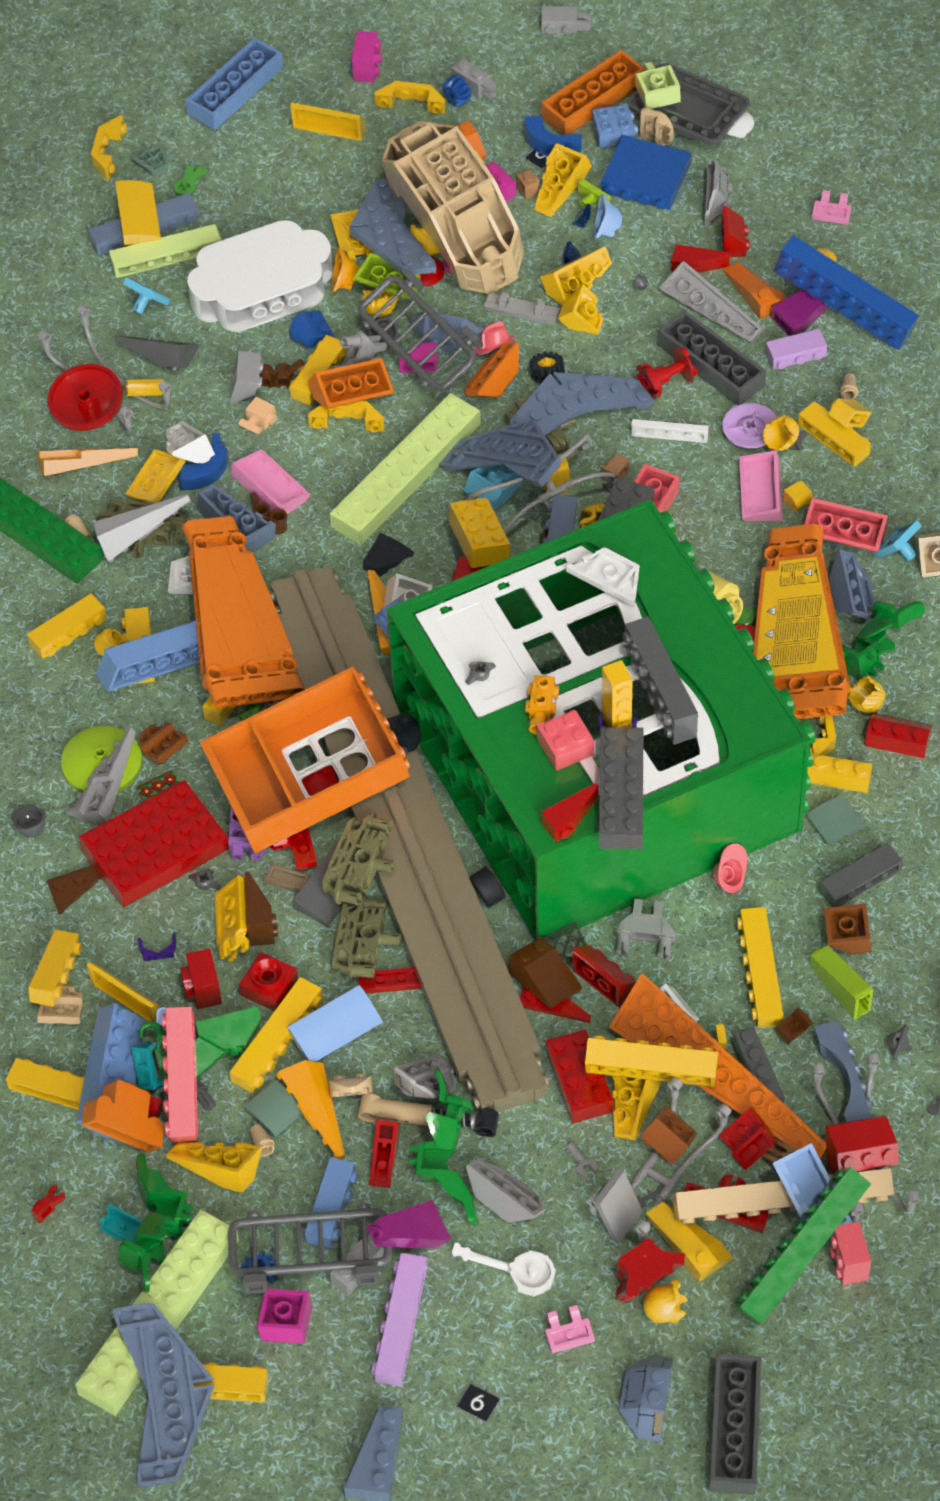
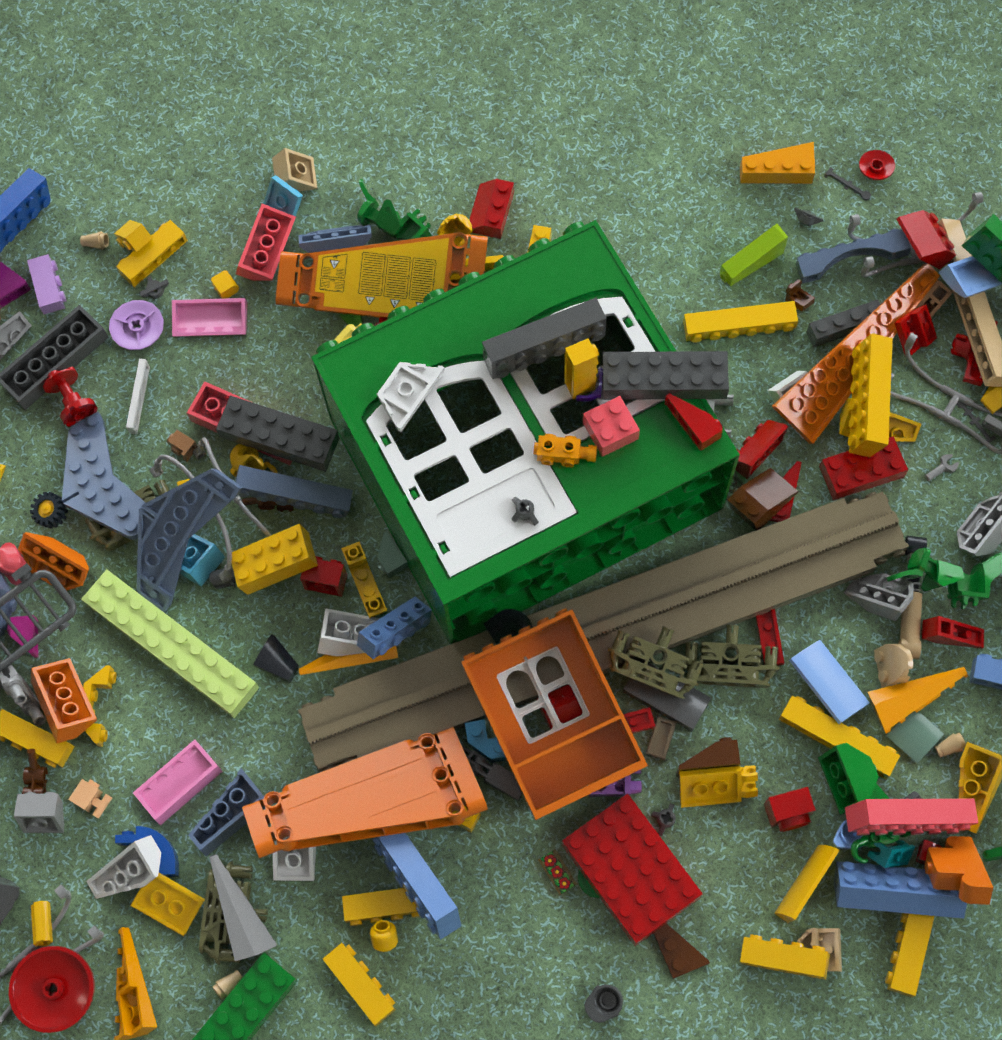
camera: 90 degrees left, 15 degrees up
(87, 751) = (529, 954): lime dish -> none
(100, 795) = (572, 929): light grey wedge -> none
(149, 955) = (750, 846): dark purple cap -> none
(161, 742) = (505, 872): dark orange slope -> none
(268, 981) = (785, 734): red piece -> none
(277, 516) = (223, 777): reddish brown beam -> none
(487, 887) = (670, 550): black tyre -> none
(668, 1135) = (918, 392): dark orange slope -> none
(721, 1035) = (814, 353): yellow tile -> none
(780, 433) = (155, 293): yellow hair -> none
(848, 928) = (702, 247): dark orange slope -> none
(860, 875) = (643, 241): dark grey brick -> none

